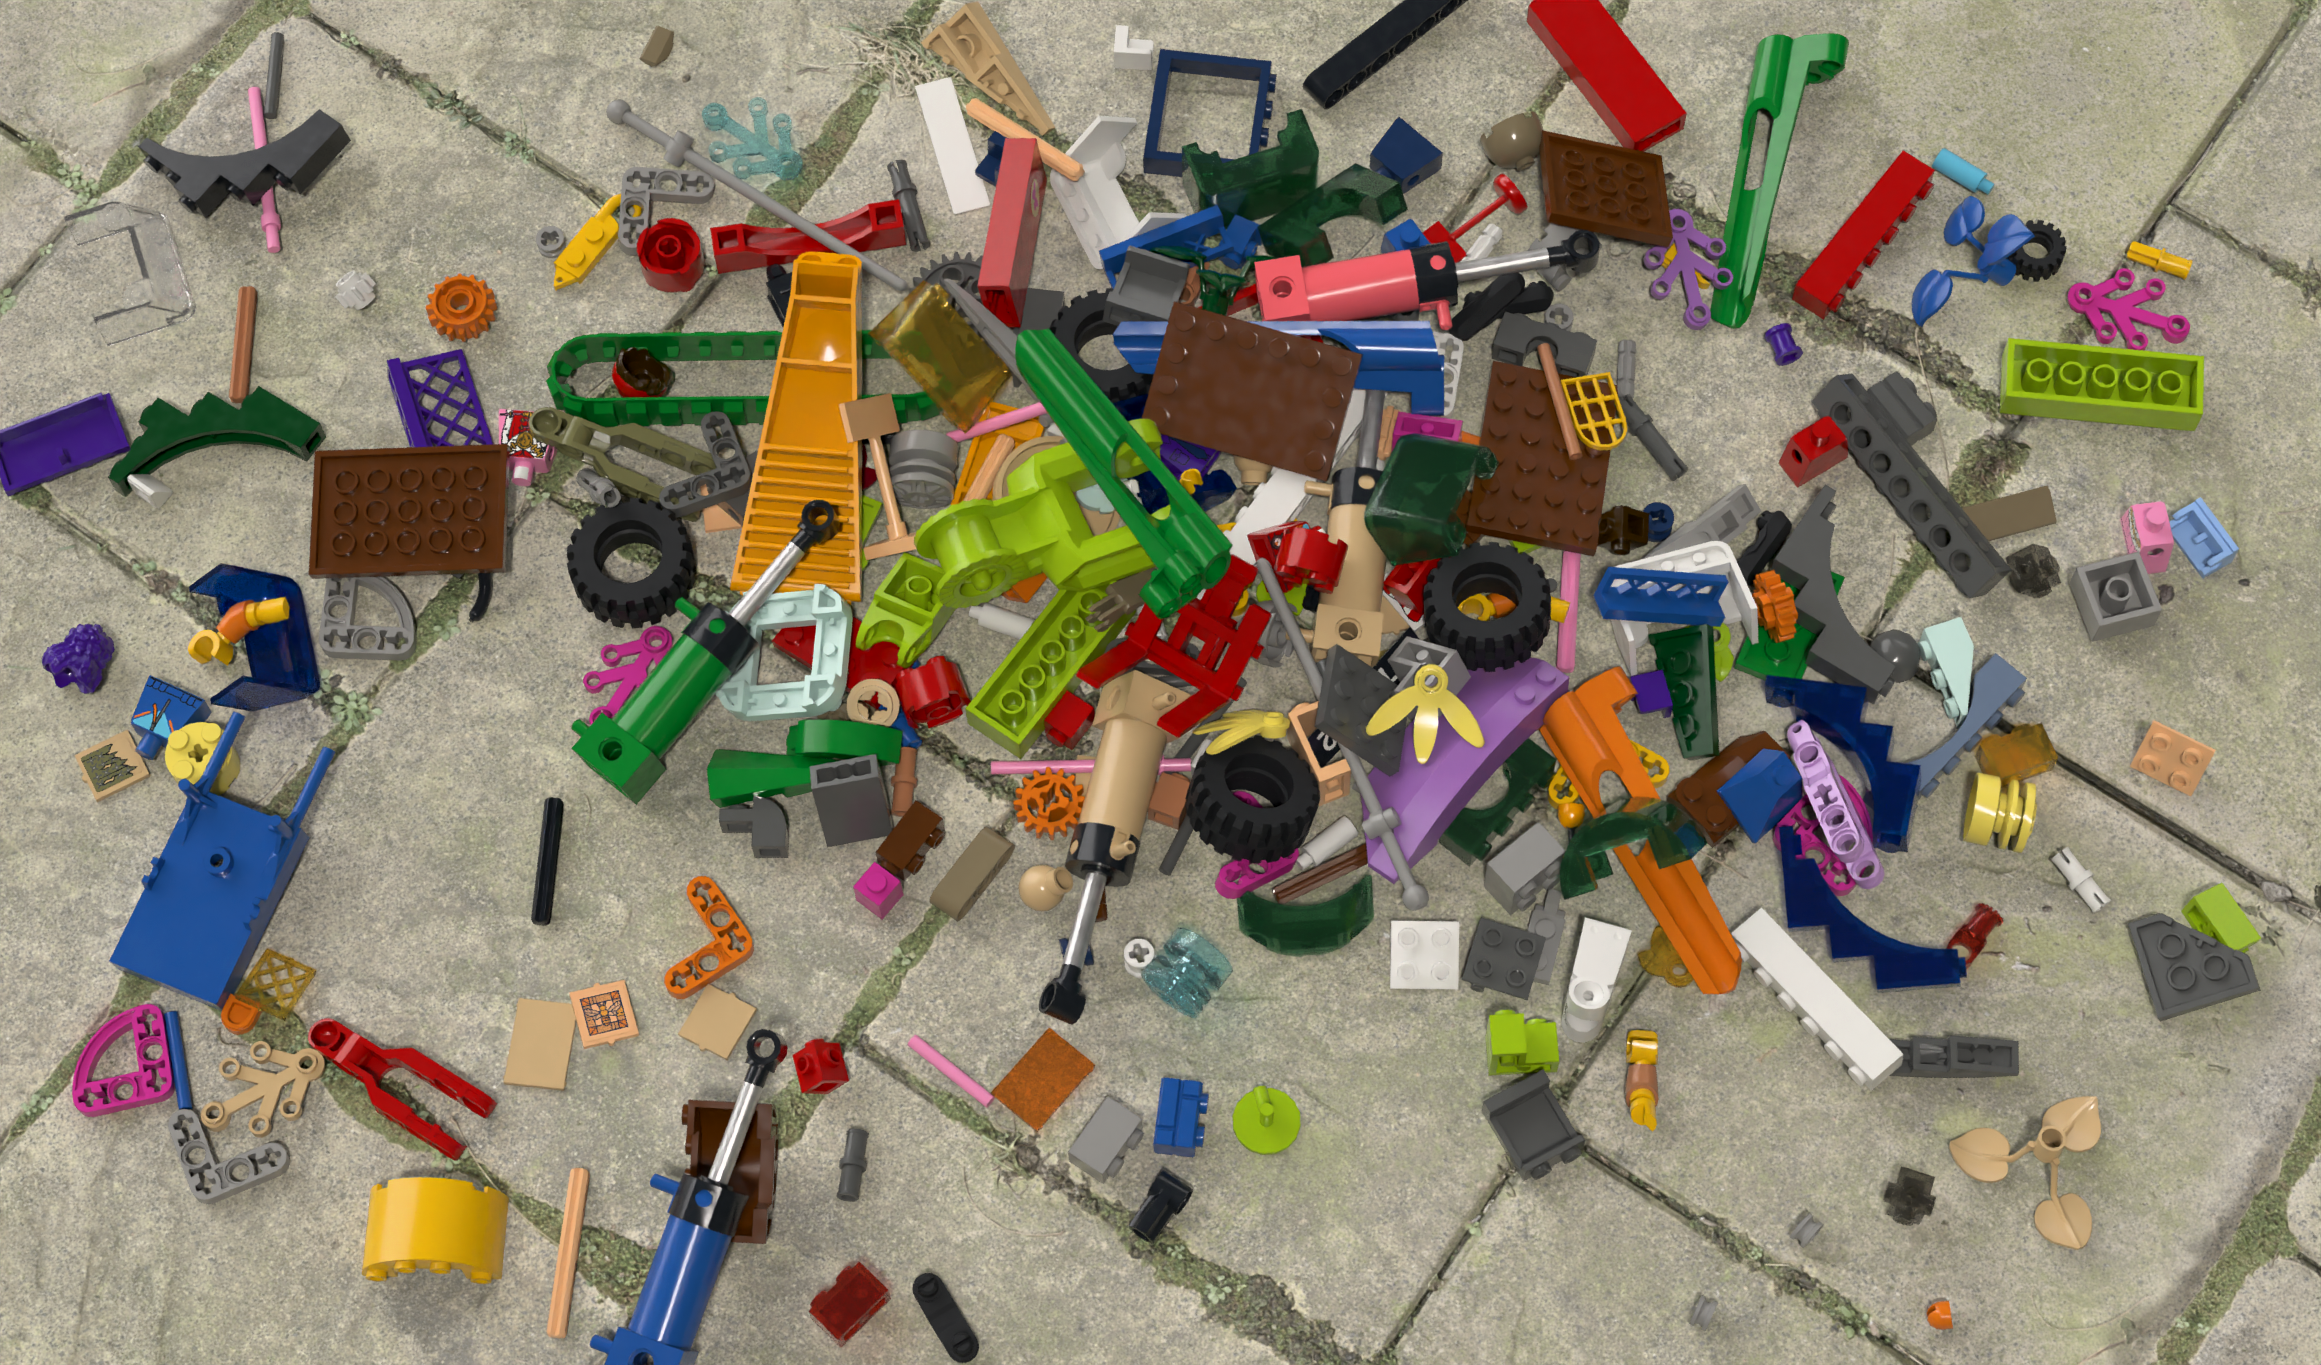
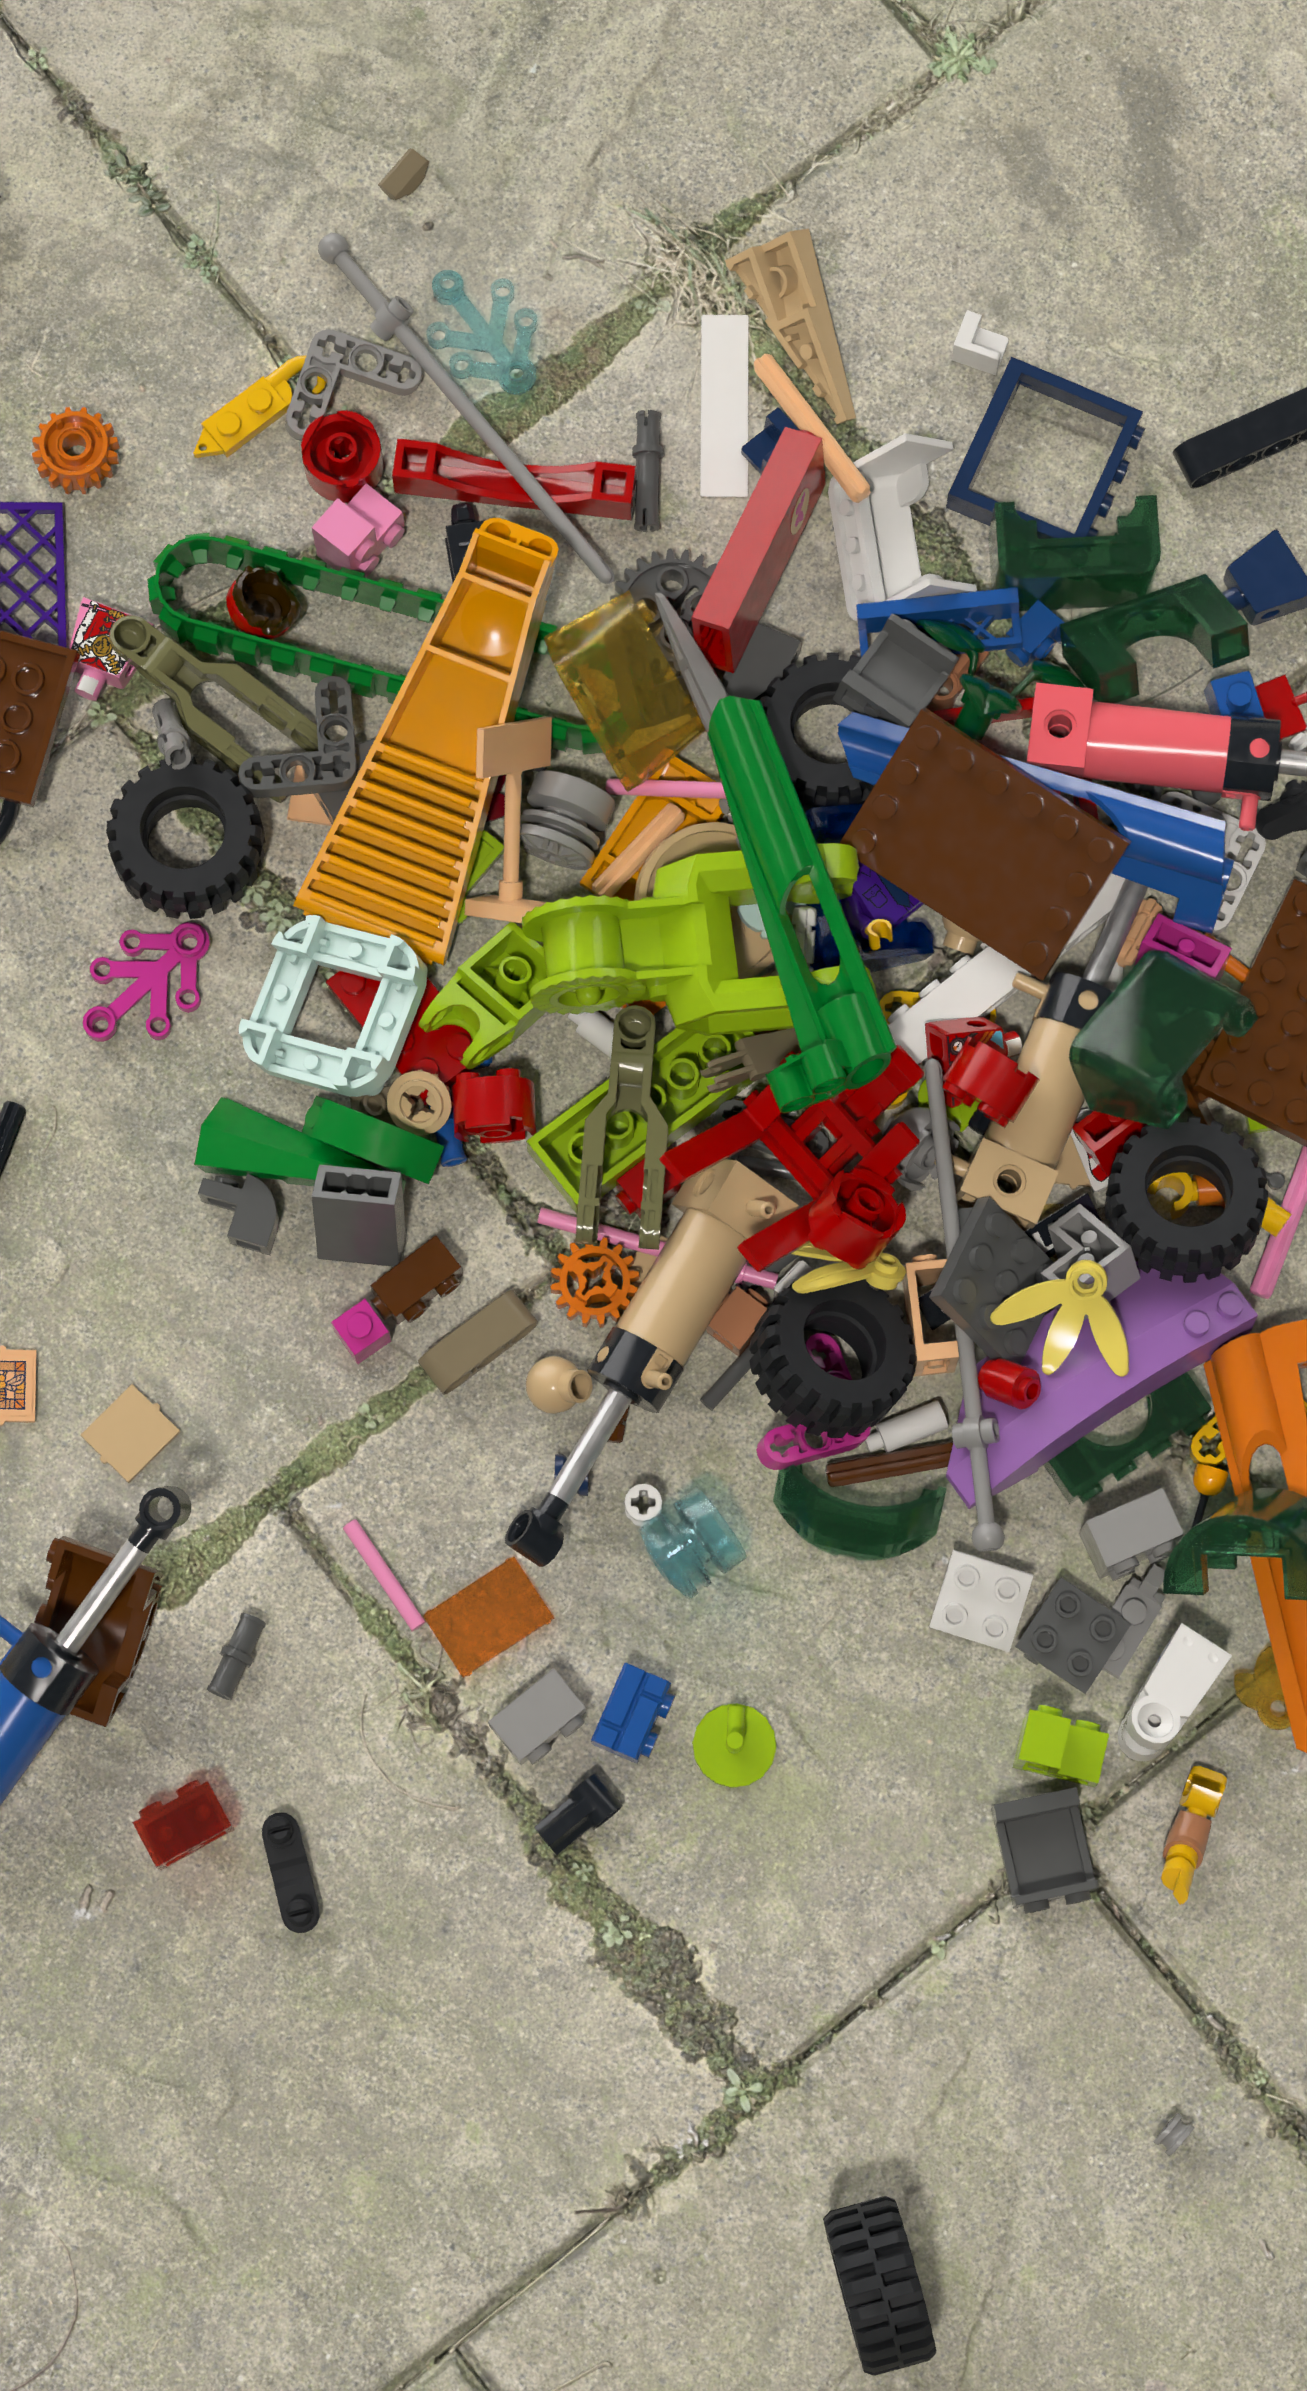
camera: 15 degrees right, 10 degrees up
(550, 233) = (210, 384): light grey bush -> none
(699, 303) = (358, 532): none -> bright pink brick
(711, 649) = (210, 1004): green piece -> none
(718, 948) = (158, 1344): orange beam -> none
(820, 1067) = (231, 1528): red brick -> none
(904, 782) = (431, 1204): nougat pin -> none
(1037, 649) = (628, 1091): none -> olive piece
(1239, 686) = (855, 1217): none -> red brick
(1396, 778) = (1009, 1383): none -> red brick

